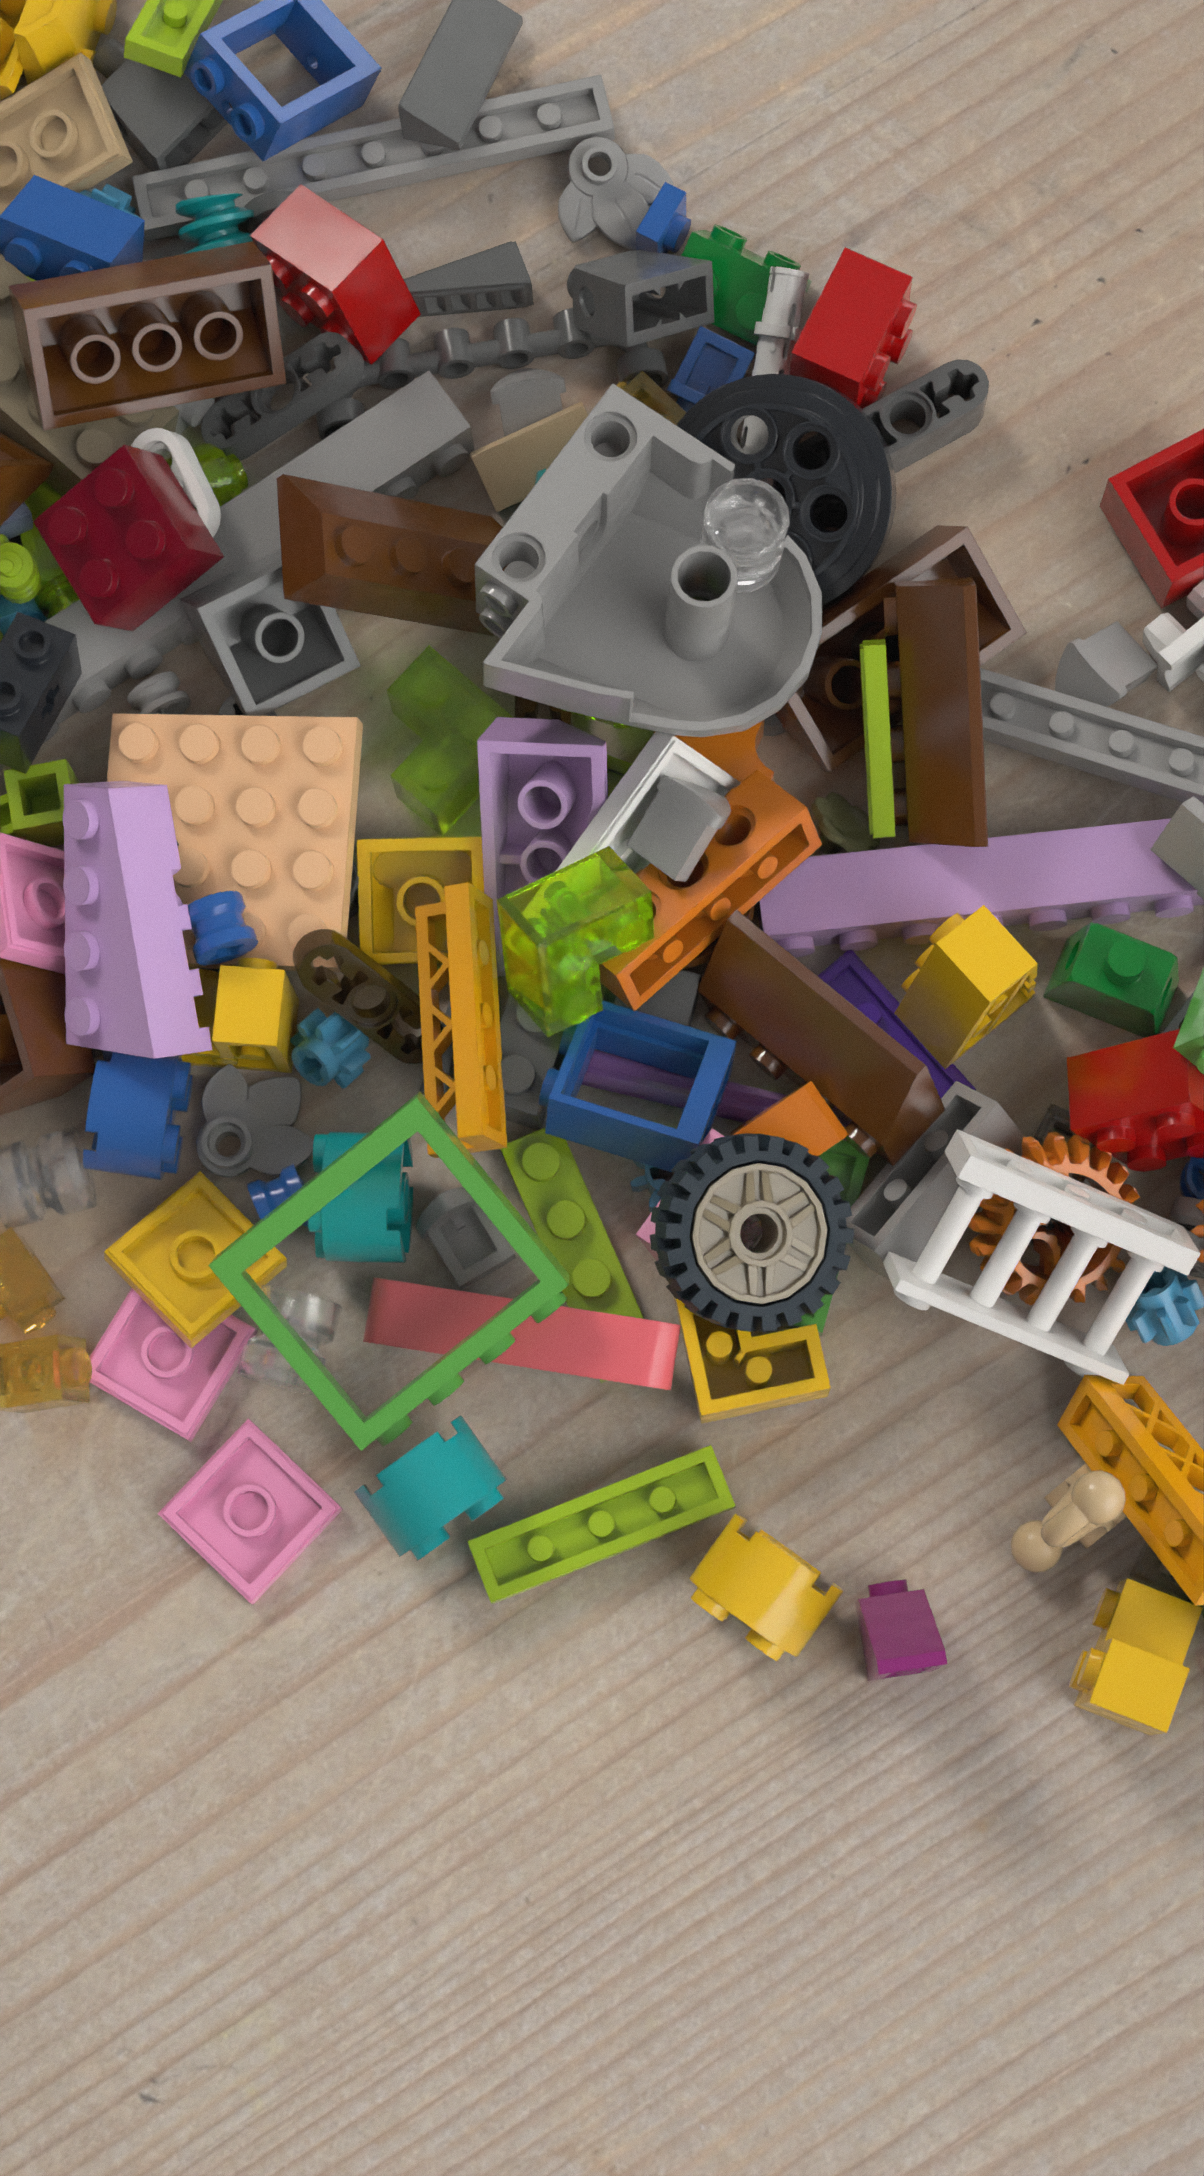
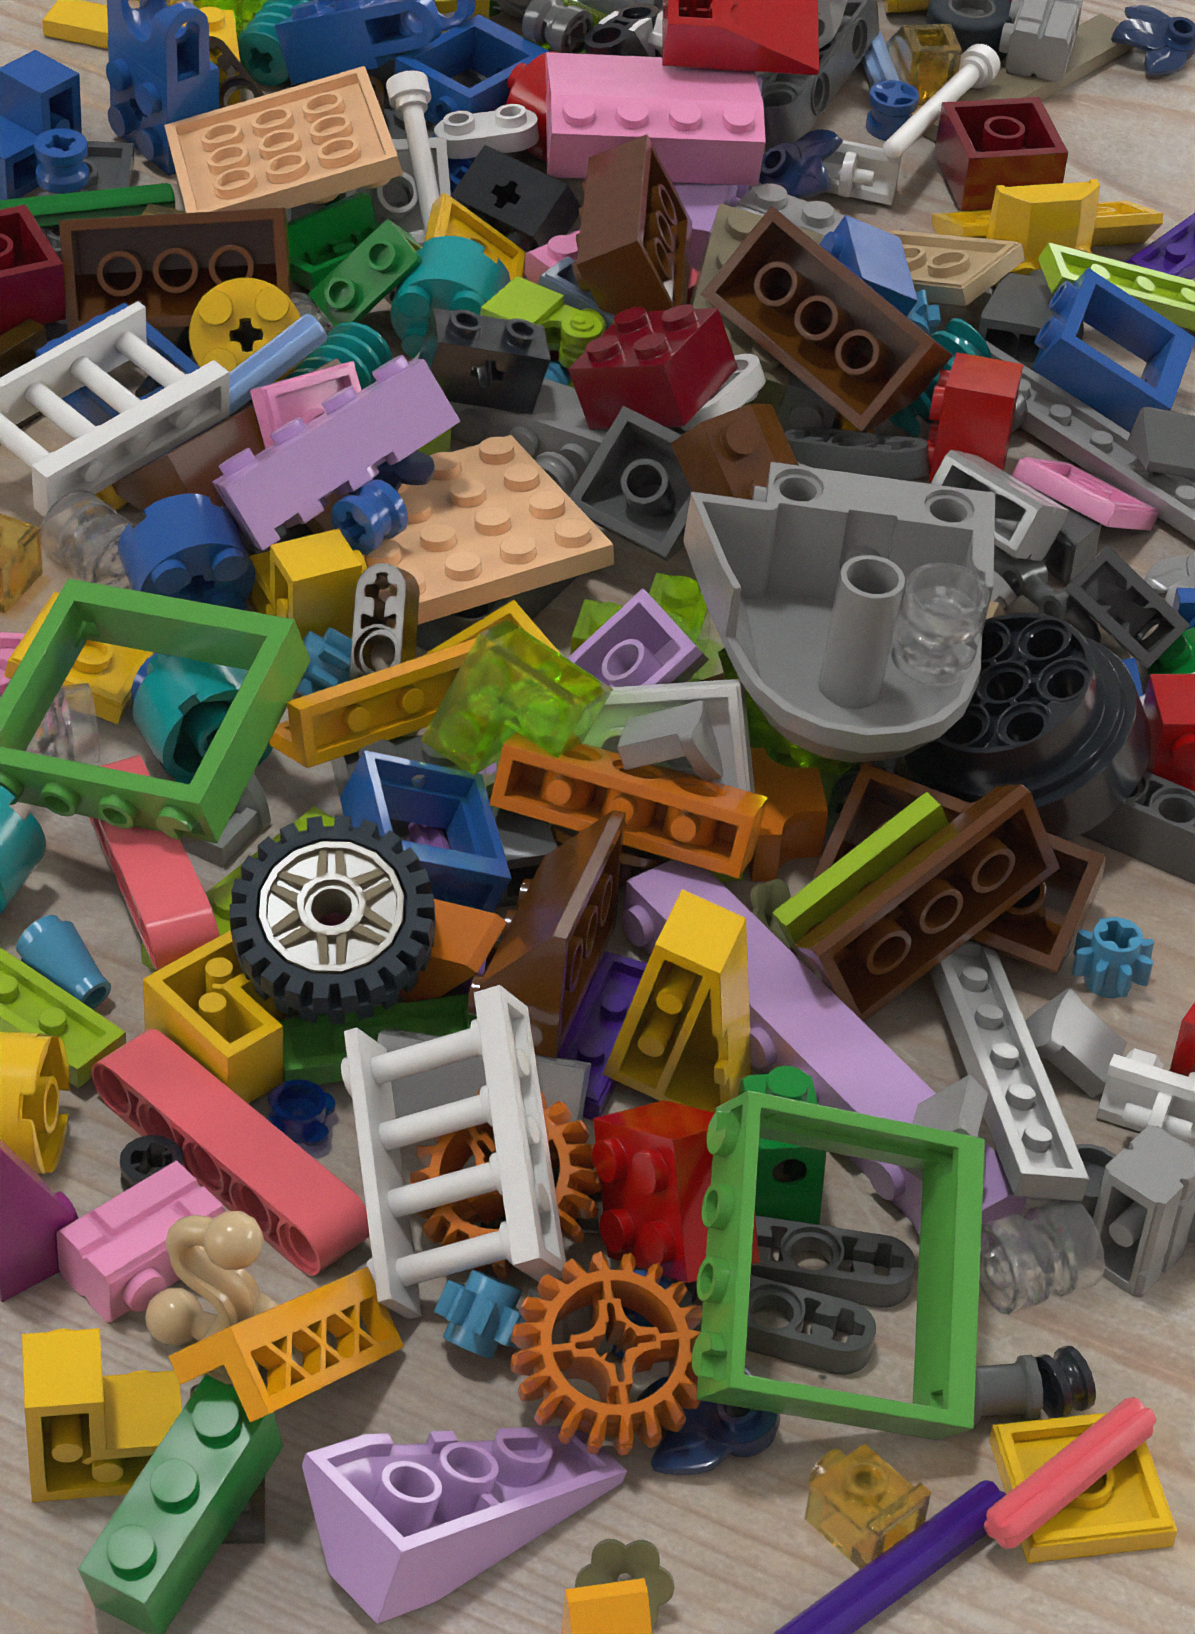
camera: 50 degrees right, 35 degrees down
(451, 222) = (1086, 494): none -> bright pink tile
(460, 327) = (1023, 517): none -> light grey brick
(590, 1457) = (62, 957): none -> dark azure cone
(860, 1322) = (301, 1111): none -> clear blue plate
(880, 1418) = (233, 1150): none -> coral beam
(882, 1489) = (144, 1153): none -> black bush
(953, 1535) = (119, 1248): none -> bright pink brick
(1036, 557) = (1113, 957): none -> dark azure gear

